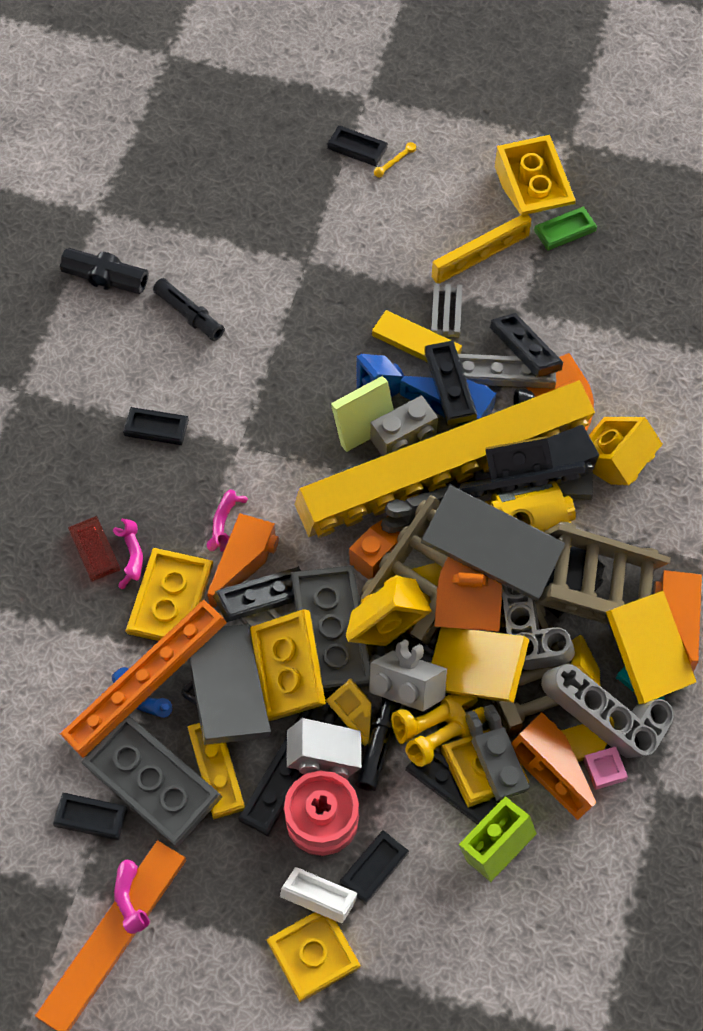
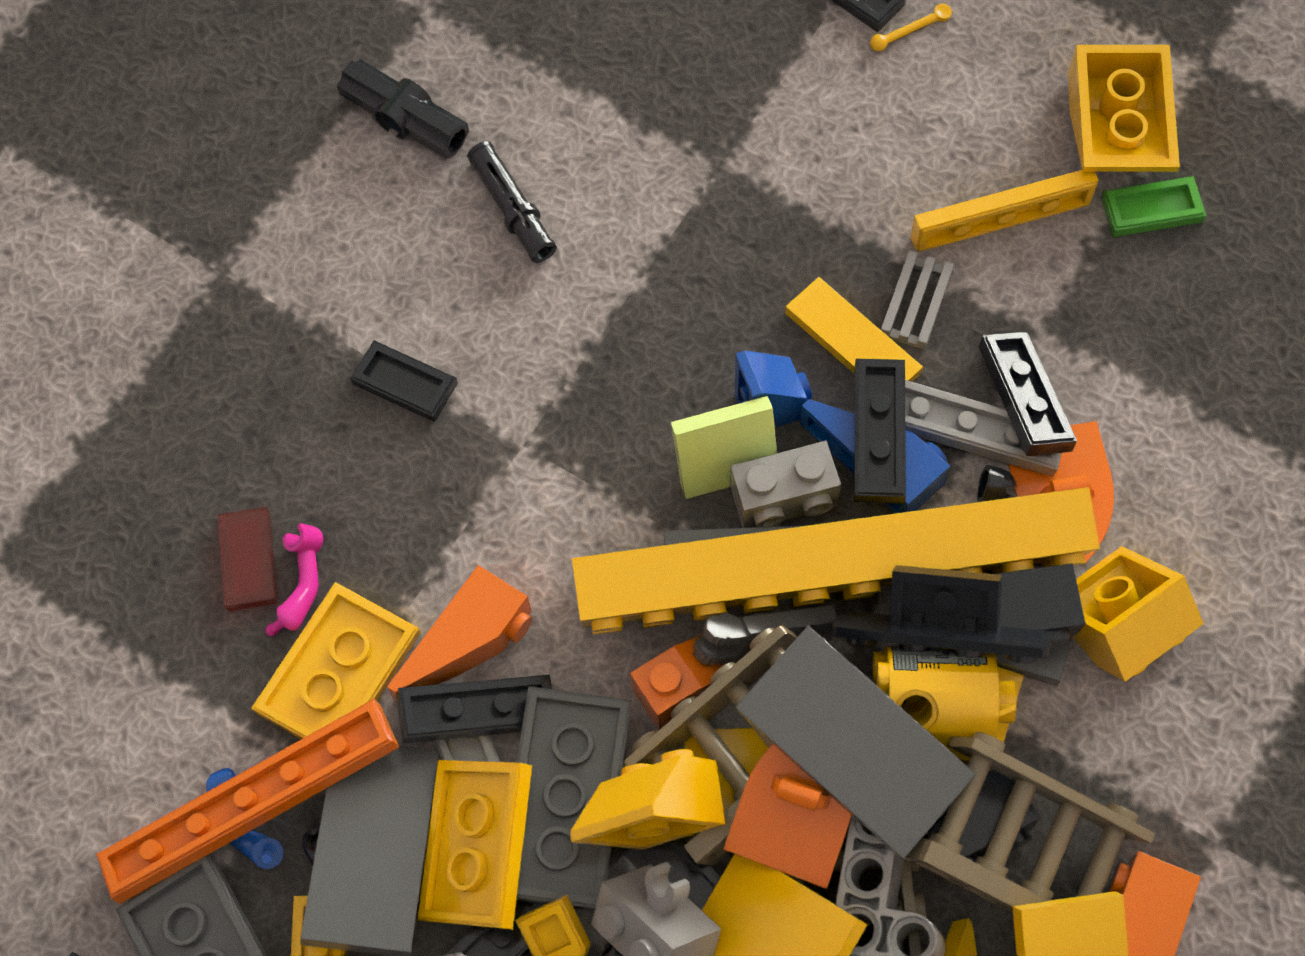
camera: 20 degrees right, 5 degrees up
(226, 504) = (463, 546): dark pink piece -> none

